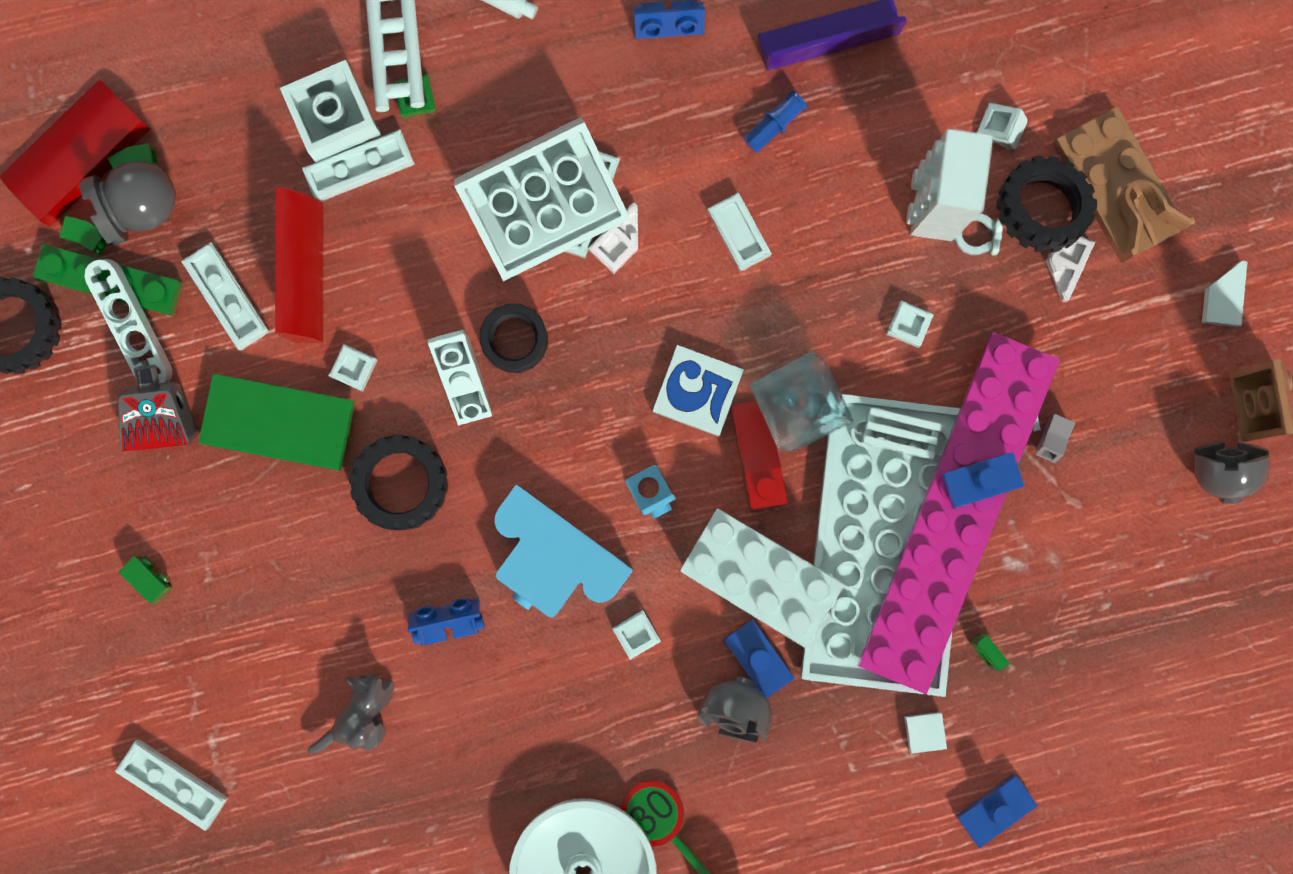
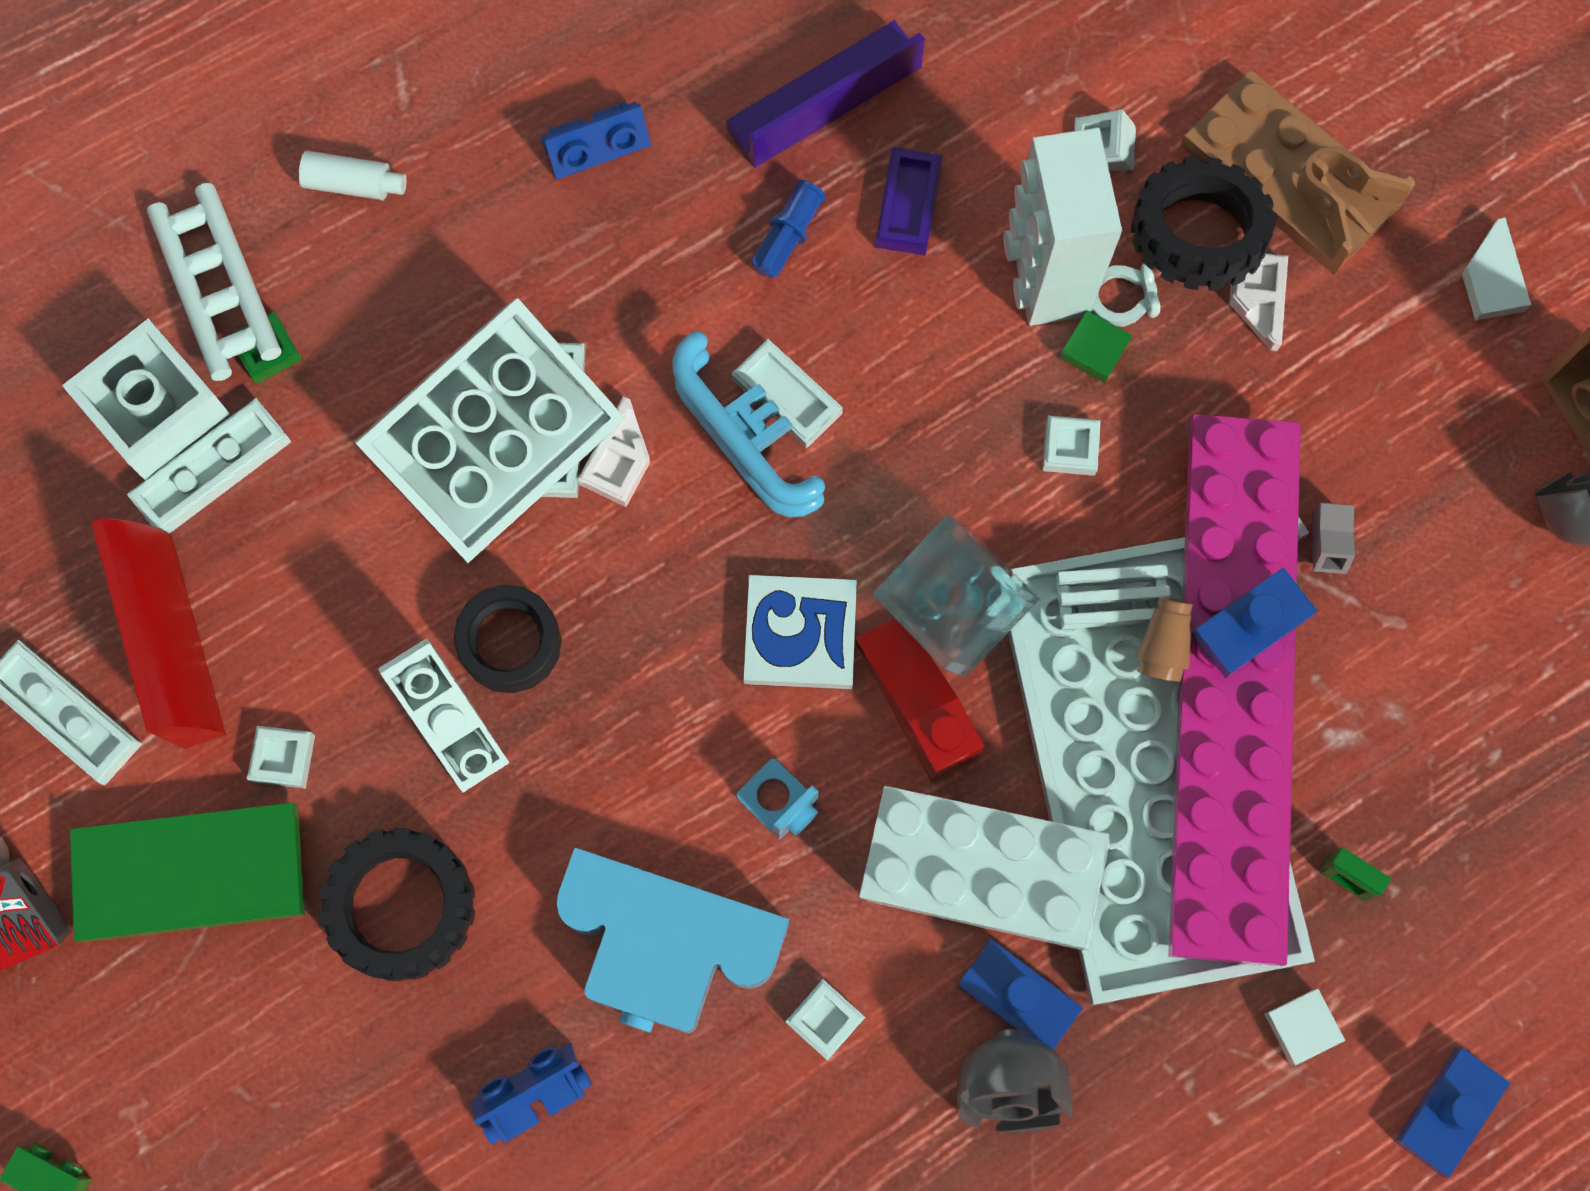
camera: 15 degrees left, 10 degrees down
(702, 250) = (743, 432): none -> medium azure piece
(860, 126) = (908, 201): none -> dark purple tile
(923, 473) = (1167, 640): none -> medium nougat cone
(948, 263) = (1095, 346): none -> green tile

